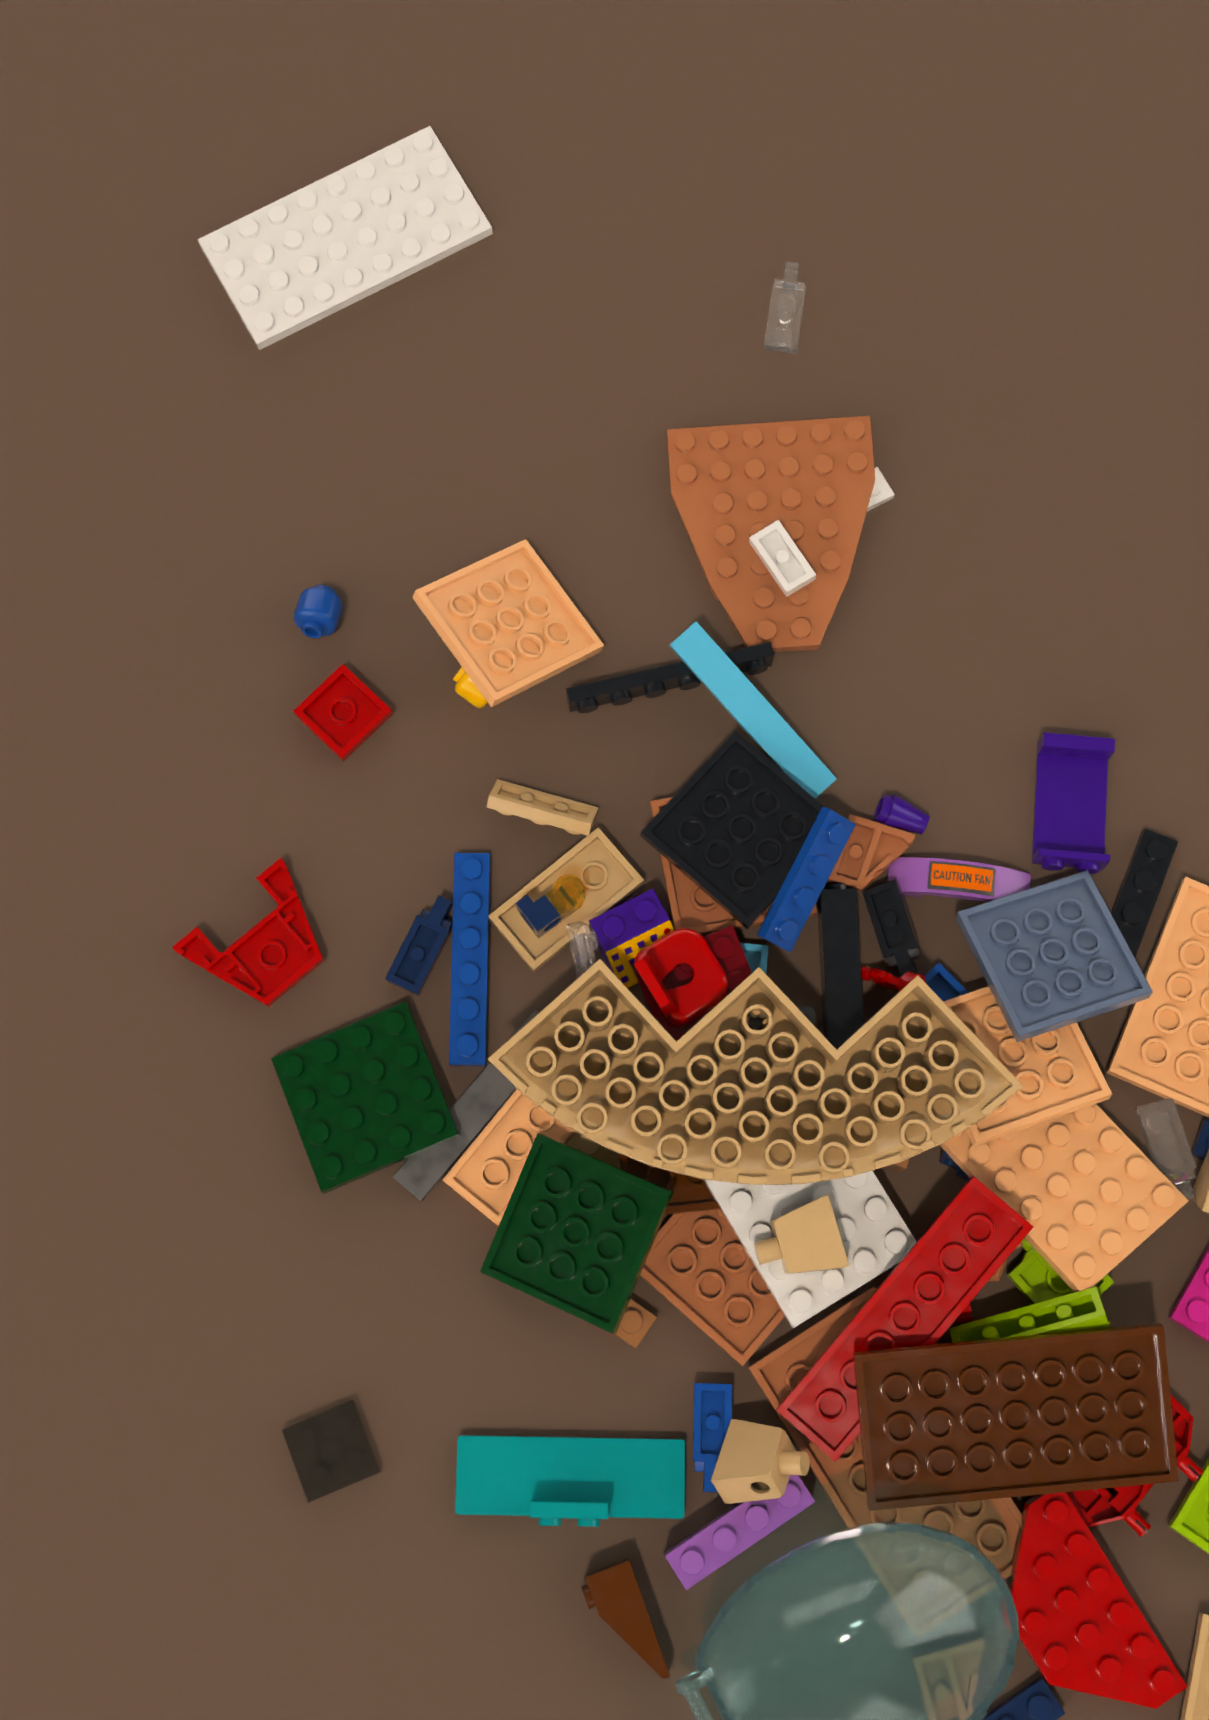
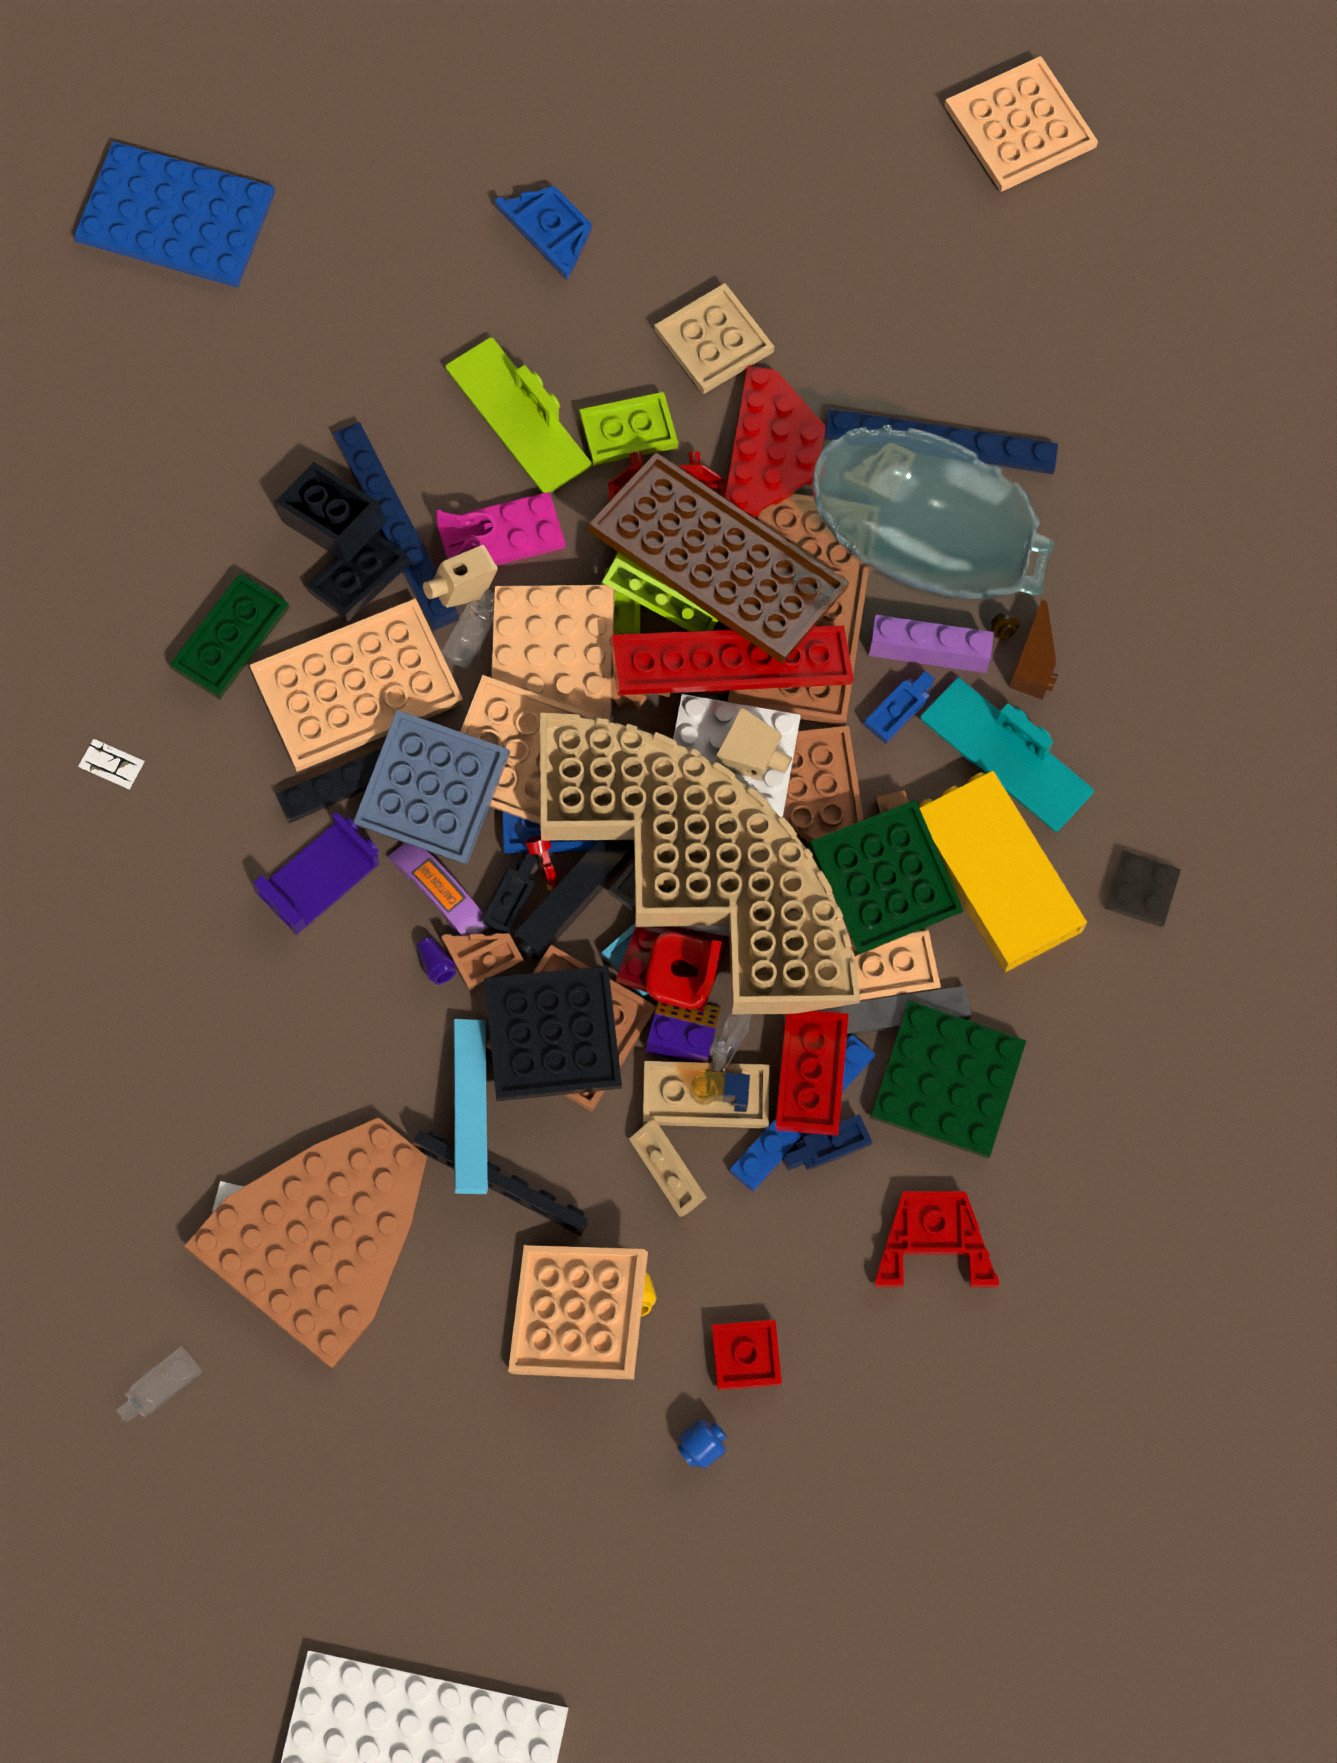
camera: 145 degrees left, 5 degrees down
(481, 981) = (812, 1072): none -> red plate
(481, 1343) = (1000, 871): none -> yellow brick
(686, 1619) = (1004, 625): none -> dark brown plate
(756, 1463) = (891, 661): tan torso -> none
(782, 558) = (349, 1190): white plate -> none
(806, 879) = (542, 962): blue plate -> none

